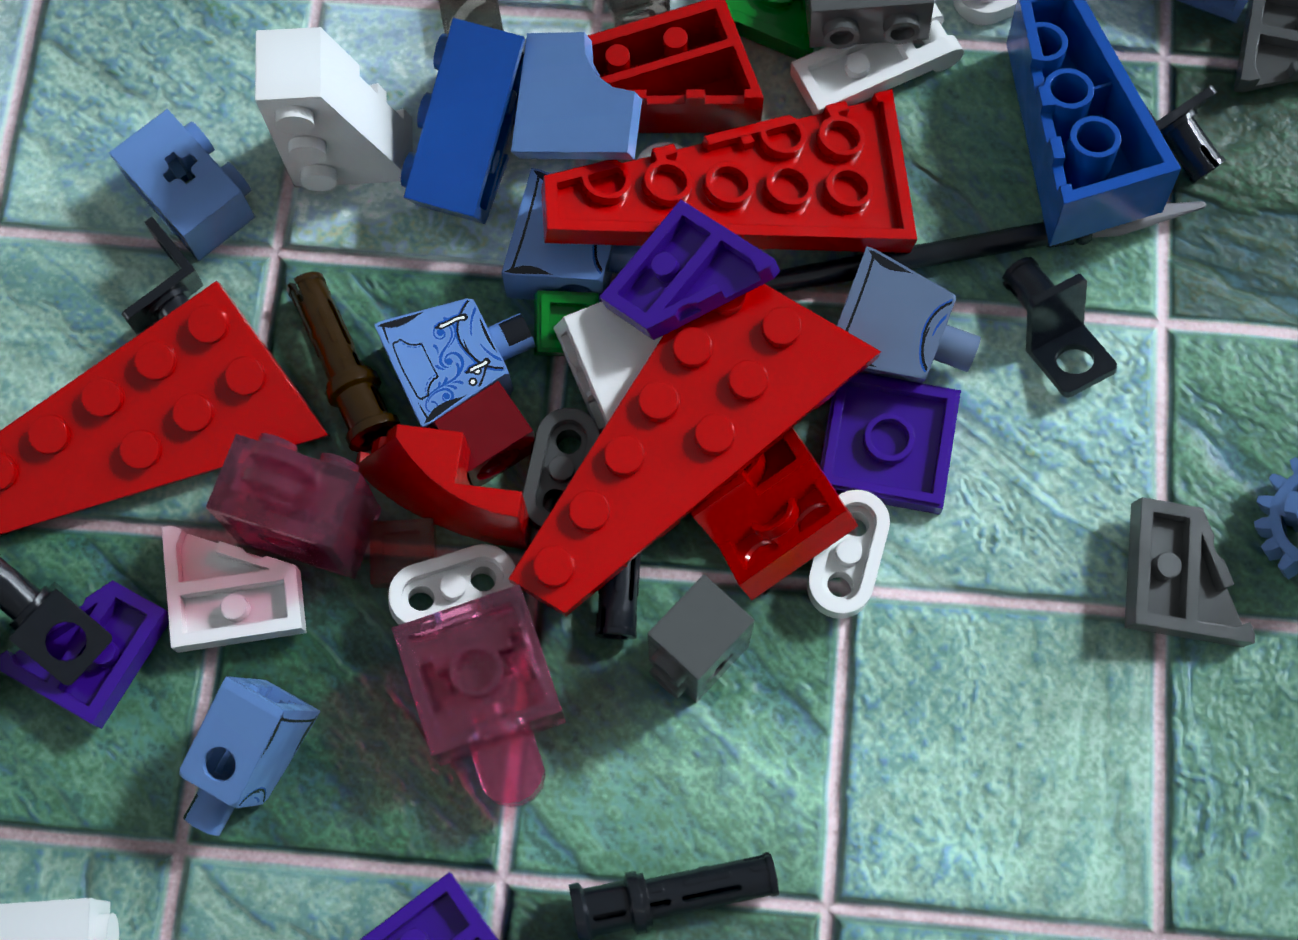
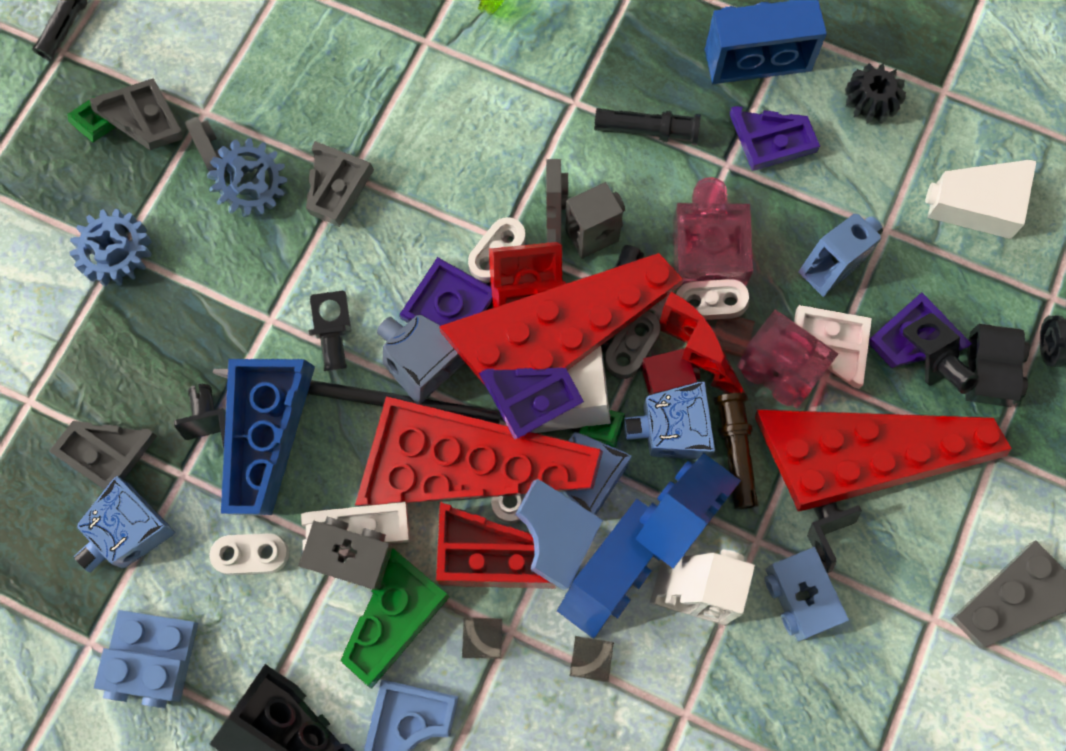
camera: 160 degrees left, 0 degrees up
(386, 214) = (685, 508): none -> blue wedge
(786, 666) = (555, 198): none -> dark grey wing

